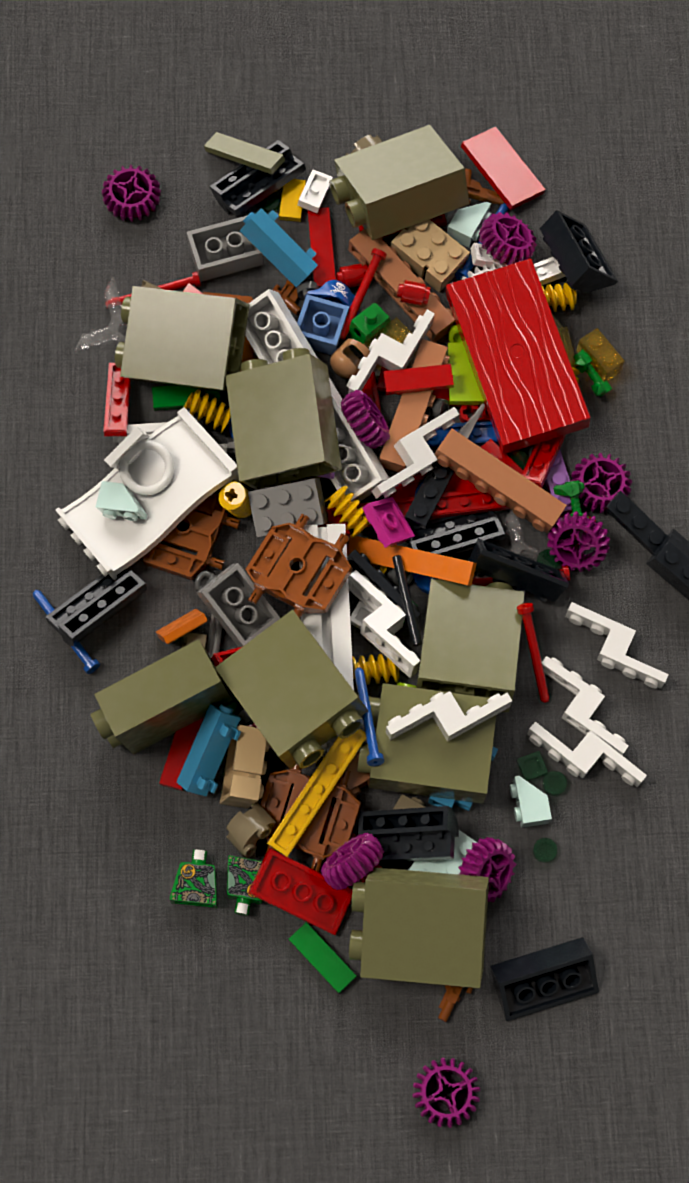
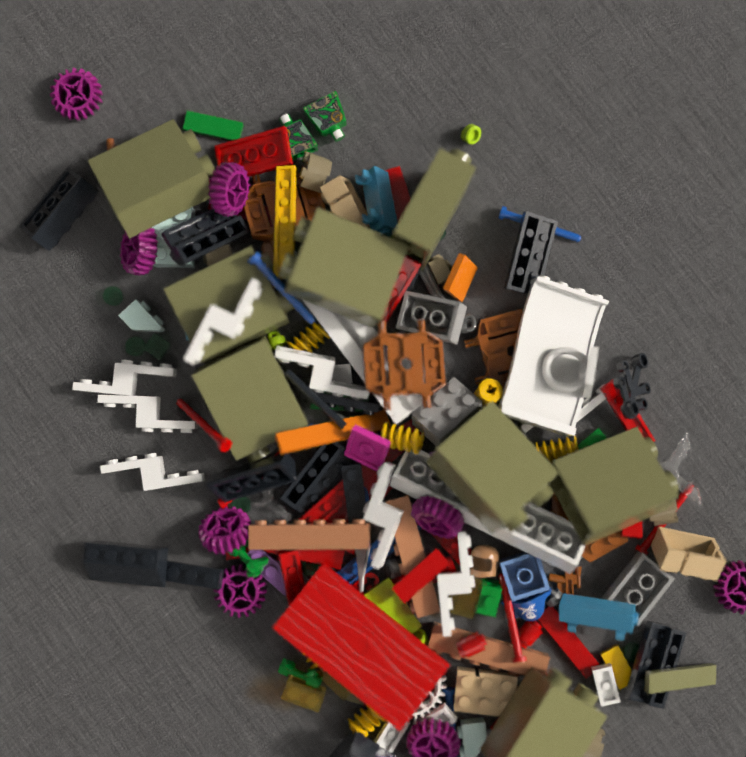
camera: 150 degrees right, 15 degrees up
(64, 766) = (471, 134): none -> lime tile
(92, 417) = (630, 407): none -> black plant
(118, 500) = (568, 334): light aqua slope -> none
(158, 245) = (687, 553): none -> tan piece

